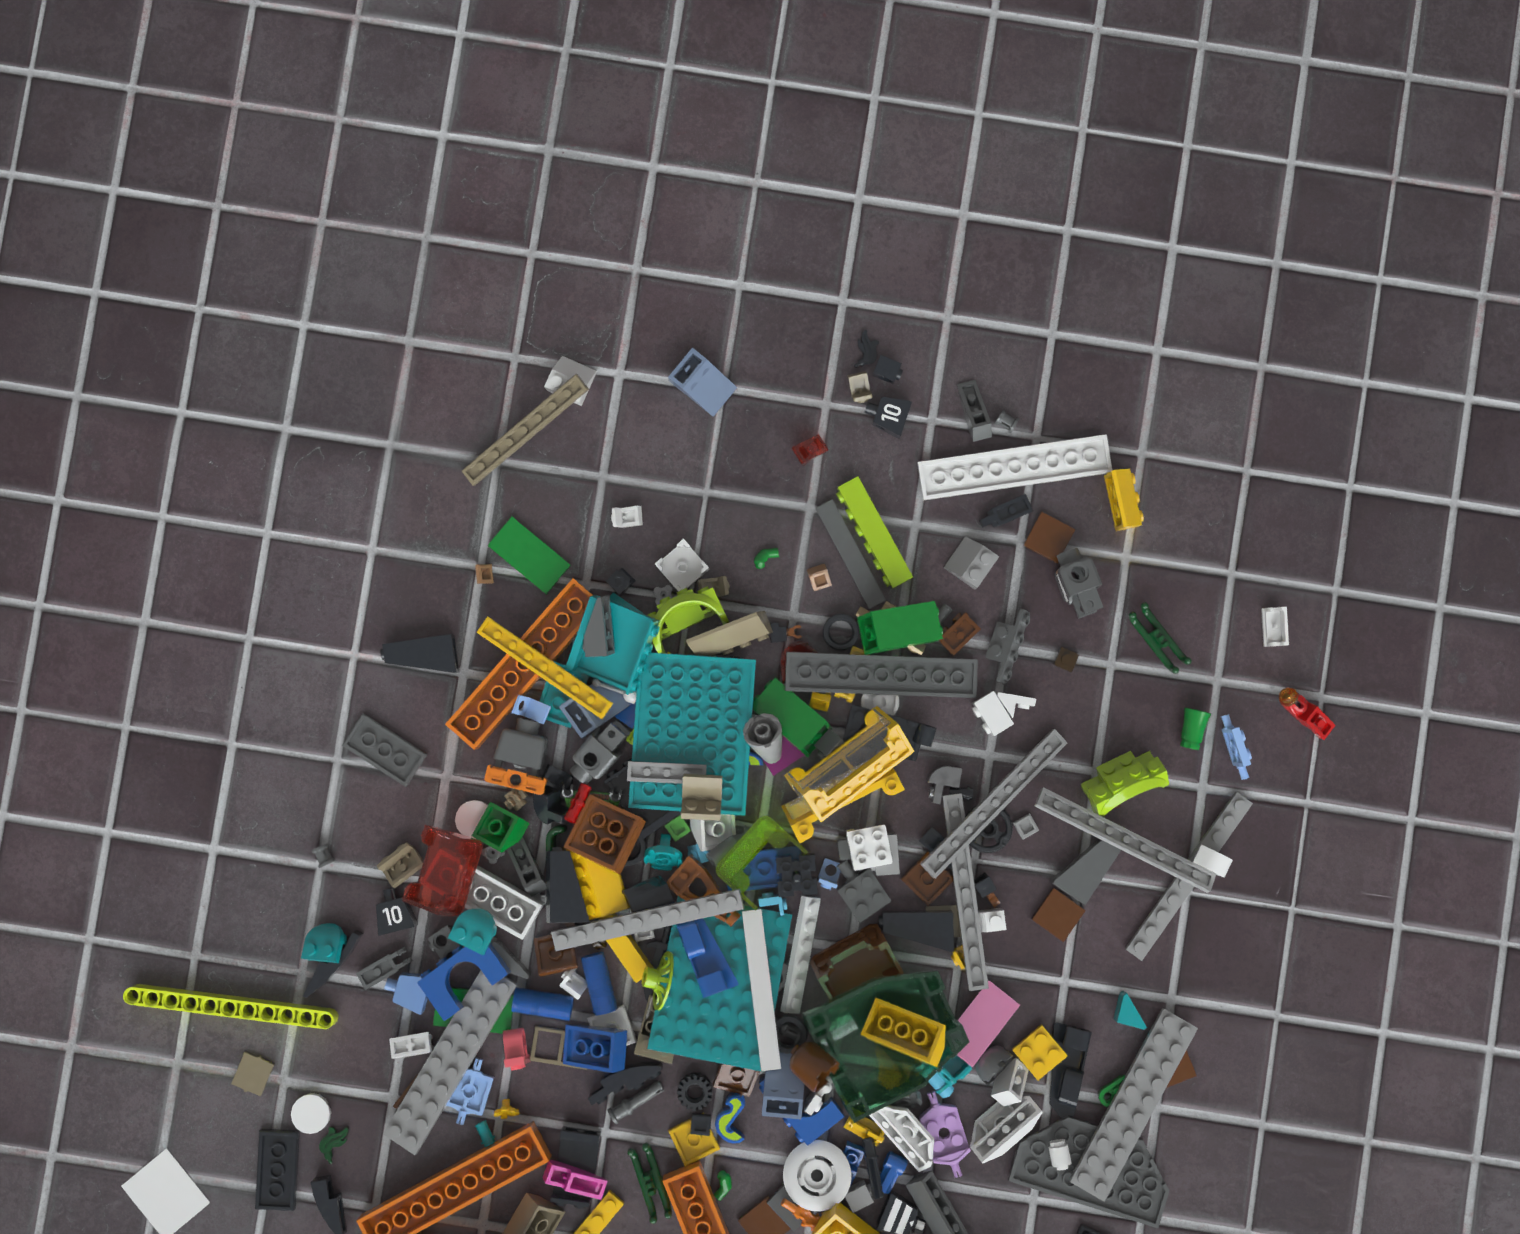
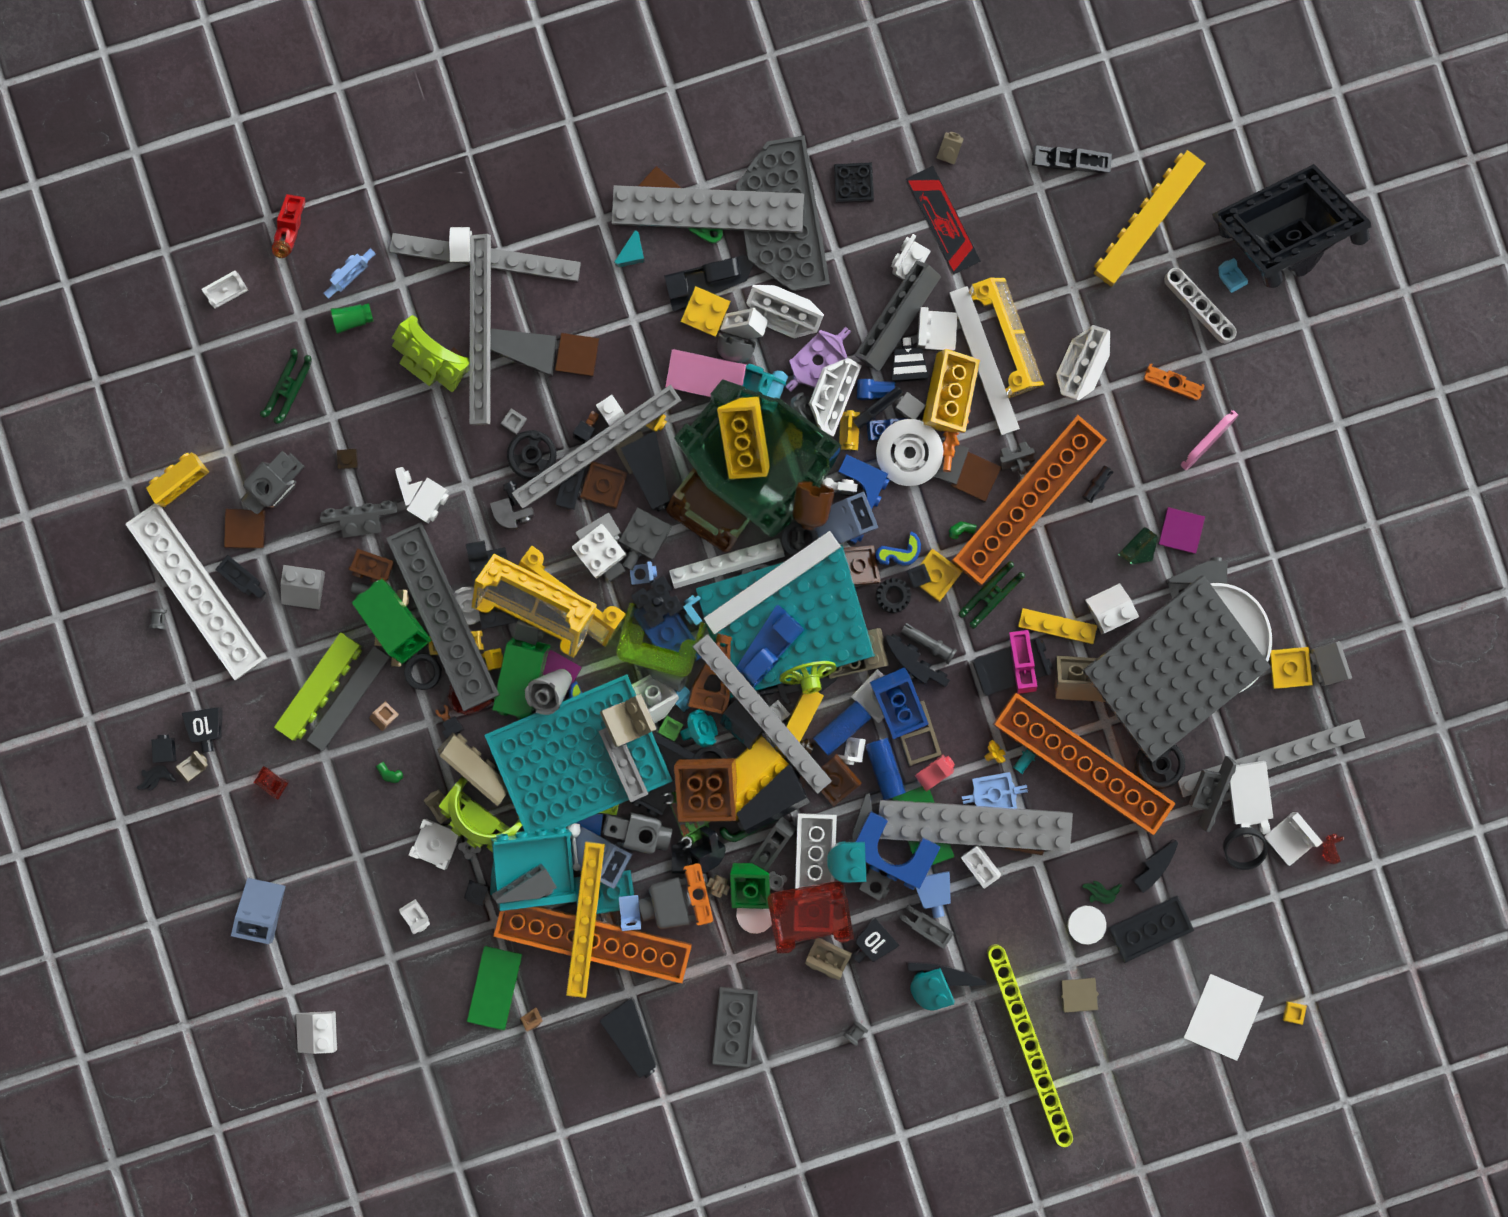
camera: 120 degrees left, 0 degrees up
(525, 429) = (381, 1049): dark tan tile -> none
(577, 803) = (691, 828): red pin -> none
(974, 411) = (162, 652): dark grey slope -> none
(993, 803) = (505, 460): light grey plate -> none
(1059, 1154) = (783, 251): white brick -> none

